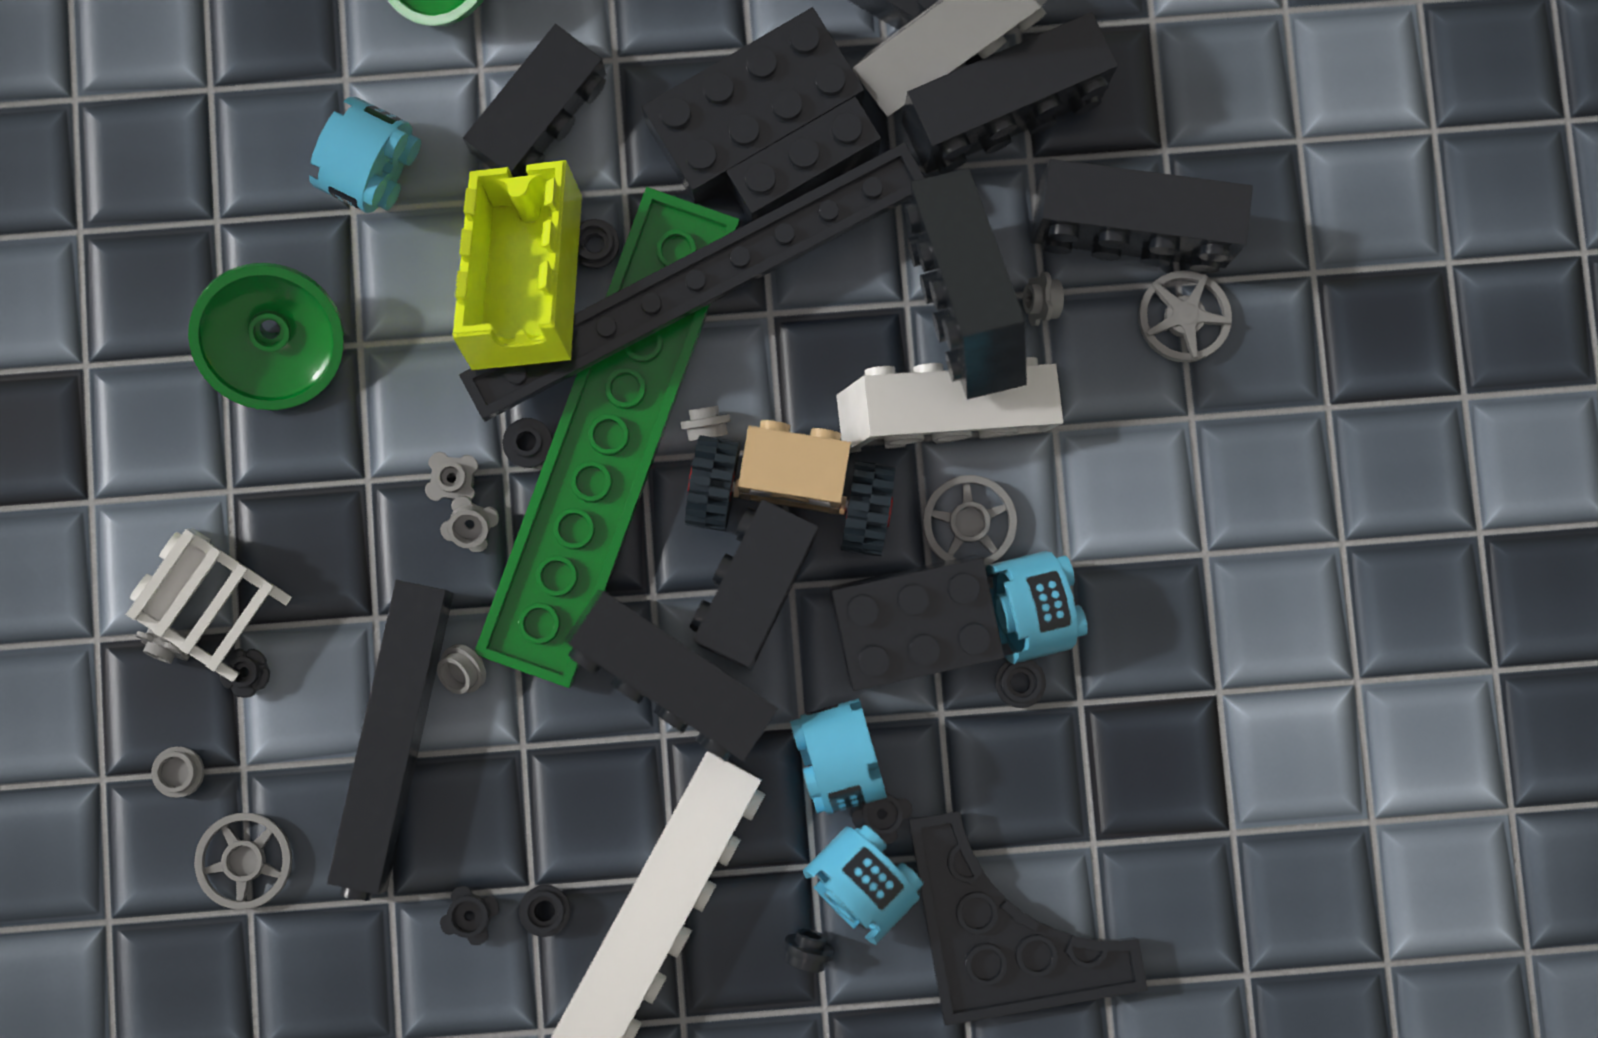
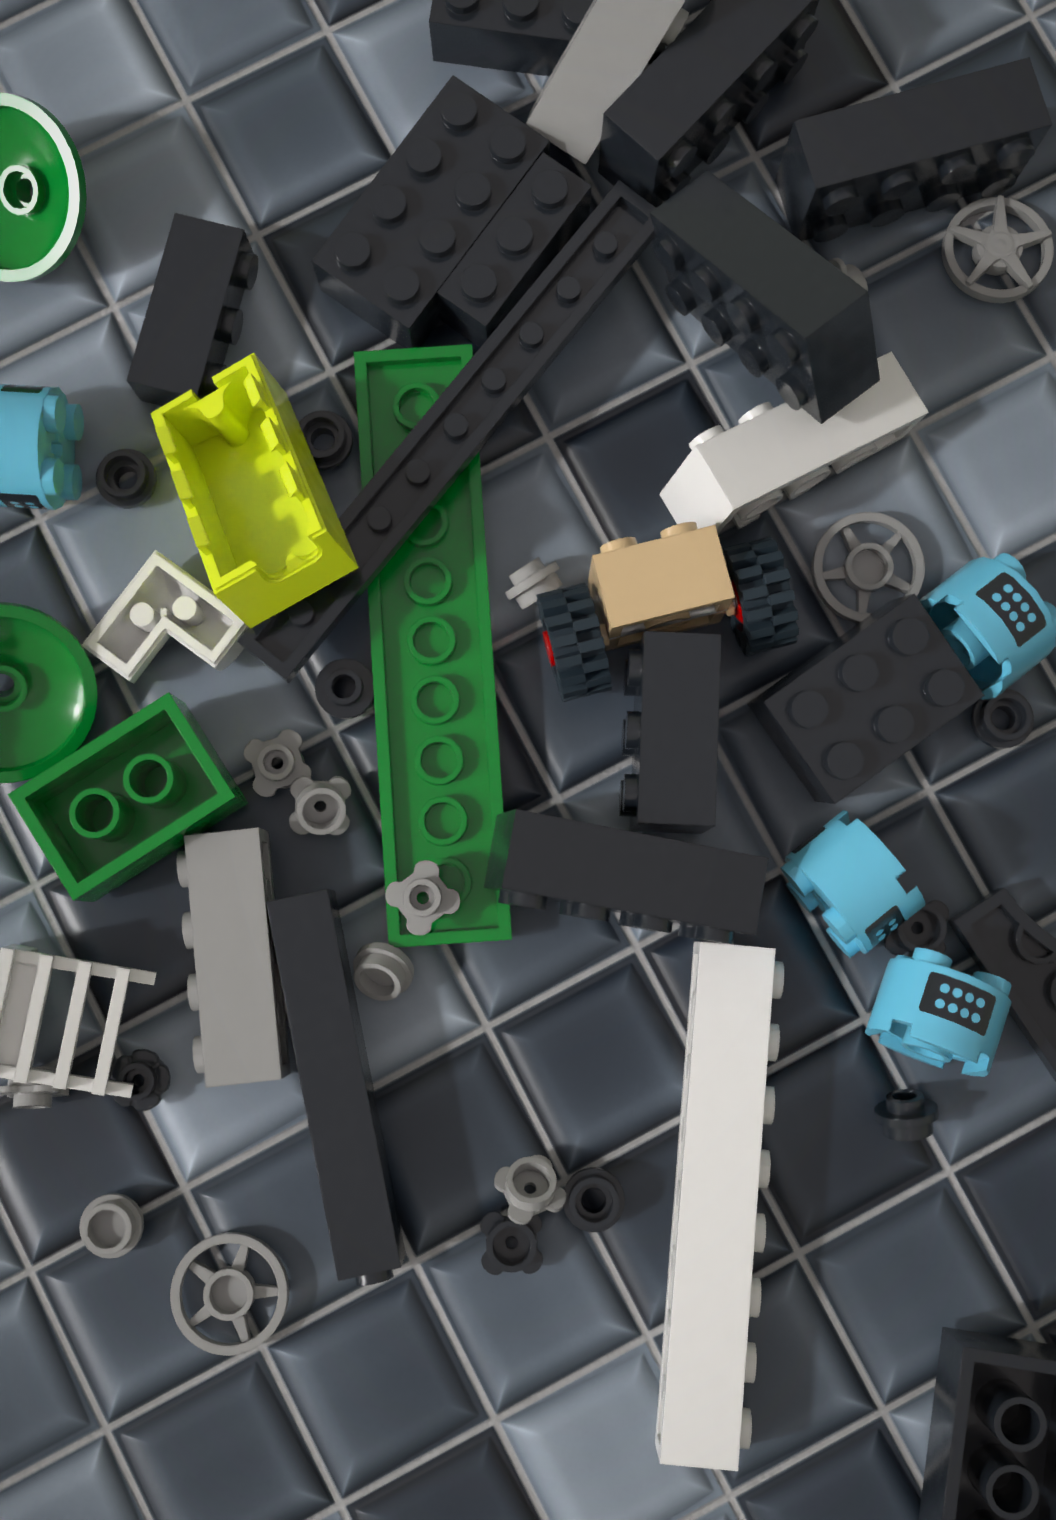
camera: 20 degrees left, 0 degrees up
(327, 457) = (127, 799): none -> green brick
(354, 611) = (234, 957): none -> light grey brick
(407, 320) = (161, 605): none -> white brick
(431, 195) = (116, 465): none -> black plate
(502, 867) = (534, 1171): none -> light grey plate
(527, 634) = (405, 894): none -> light grey plate

